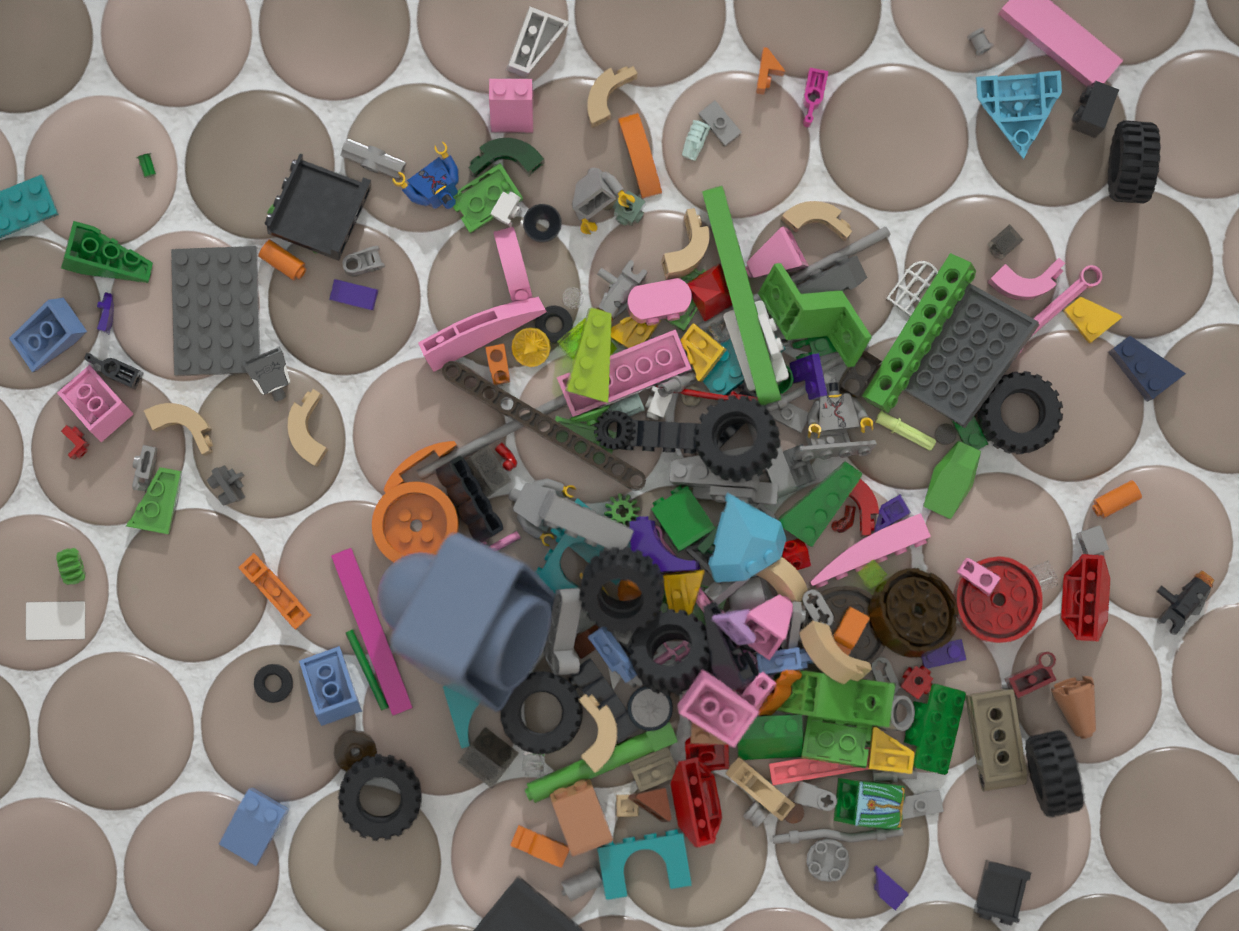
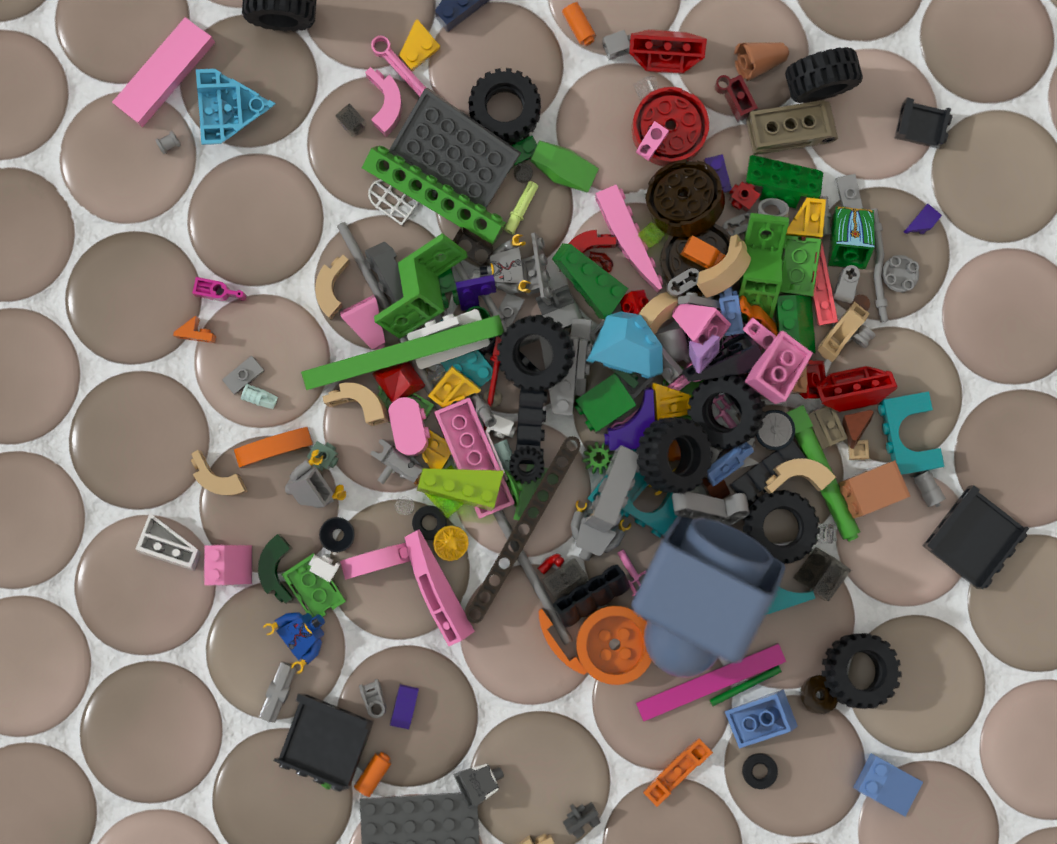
camera: 90 degrees left, 0 degrees up
(299, 432) = (530, 754): tan arch -> none
(498, 364) = (466, 572): orange leg -> none
(540, 846) = (898, 525): orange piece -> none
(891, 512) = (593, 219): dark purple slope -> none
(1095, 109) = (230, 40): black brick -> none

